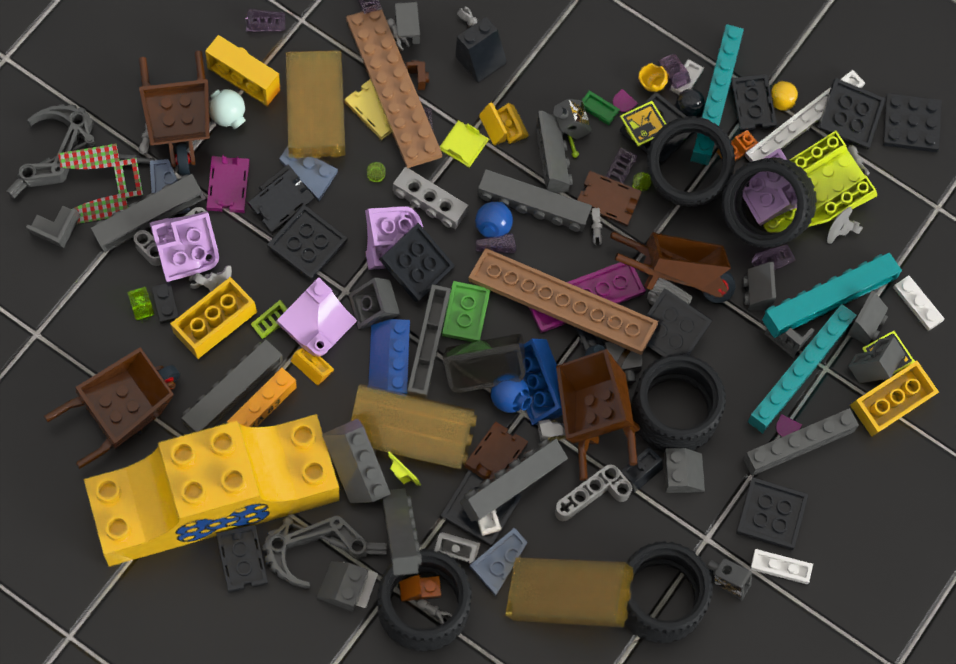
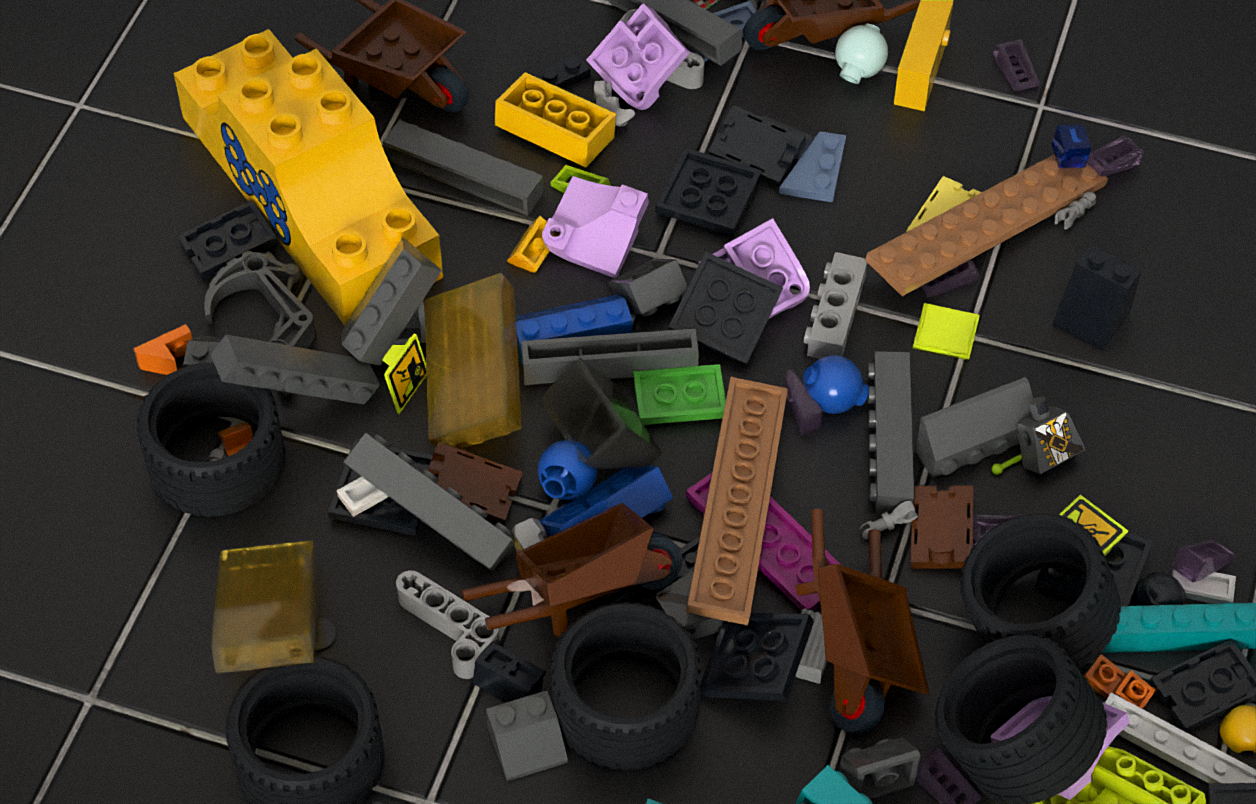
camera: 80 degrees right, 15 degrees down
(140, 303) = (548, 45): clear neon green bracket -> none
(228, 184) = (759, 90): magenta piece -> none
(265, 400) = (454, 201): light orange brick -> none
(315, 104) = (915, 141): clear yellow brick -> none
(329, 623) = (160, 353): none -> orange slope
(358, 15) = (1071, 146): none -> clear blue brick
(376, 171) = (851, 240): clear neon green tile -> none
(407, 21) = (1093, 201): dark grey panel -> none
(418, 68) = (1026, 247): reddish brown bracket -> none
(457, 547) = (308, 467): light grey brick -> none
(466, 15) = (1145, 287): light grey piece -> none
(493, 124) = (993, 356): yellow slope -> none
(499, 560) = (300, 521): sand blue wing -> none
(513, 123) = (1007, 371): yellow slope -> none
(600, 108) = (1090, 477): green tile -> none
(624, 101) = (1119, 509): magenta piece -> none
(653, 77) = (1173, 530): yellow hair -> none

